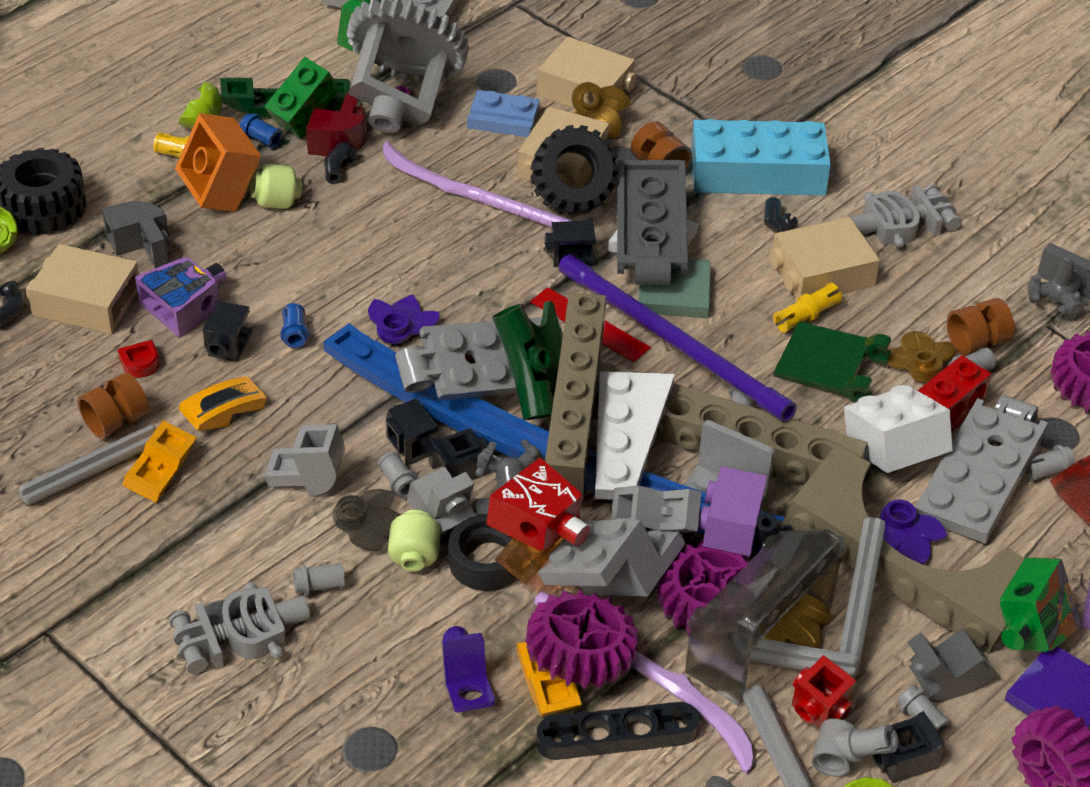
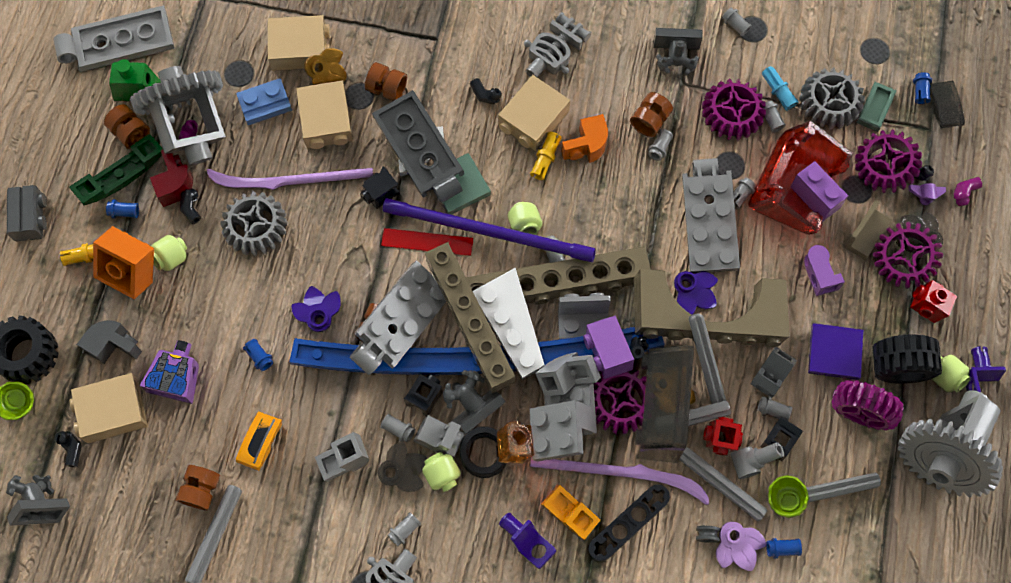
camera: 30 degrees left, 25 degrees up
(139, 359) = (182, 437): red tile -> none
(154, 85) = (25, 213): none -> dark grey brick
(159, 462) = (253, 507): light orange slope -> none
(208, 103) = (72, 216): lime hair -> none
(224, 331) = (222, 387): black window -> none
(303, 90) = (136, 173): green brick -> none
(332, 54) = (126, 125): none -> dark orange wheel
(395, 206) = (239, 215): none -> light grey gear
(409, 430) = (384, 392): black window -> none
(531, 356) = (429, 307): dark green pin -> none
(538, 508) = (515, 426): red torso -> none
(581, 639) = (599, 476): magenta gear -> none
(590, 147) = (368, 141): black tyre -> none
(734, 345) = (525, 218): none -> yellowish green head
(759, 157) = (446, 51): medium azure brick -> none
(831, 359) = (580, 188): dark green flag -> none
(865, 318) = (592, 140): none -> orange brick
(899, 427) = (655, 224): white brick -> none
(921, 355) = (625, 151): pearl gold plate -> none
(958, 388) = (666, 179): red brick -> none
(1038, 606) = (800, 311): green torso -> none

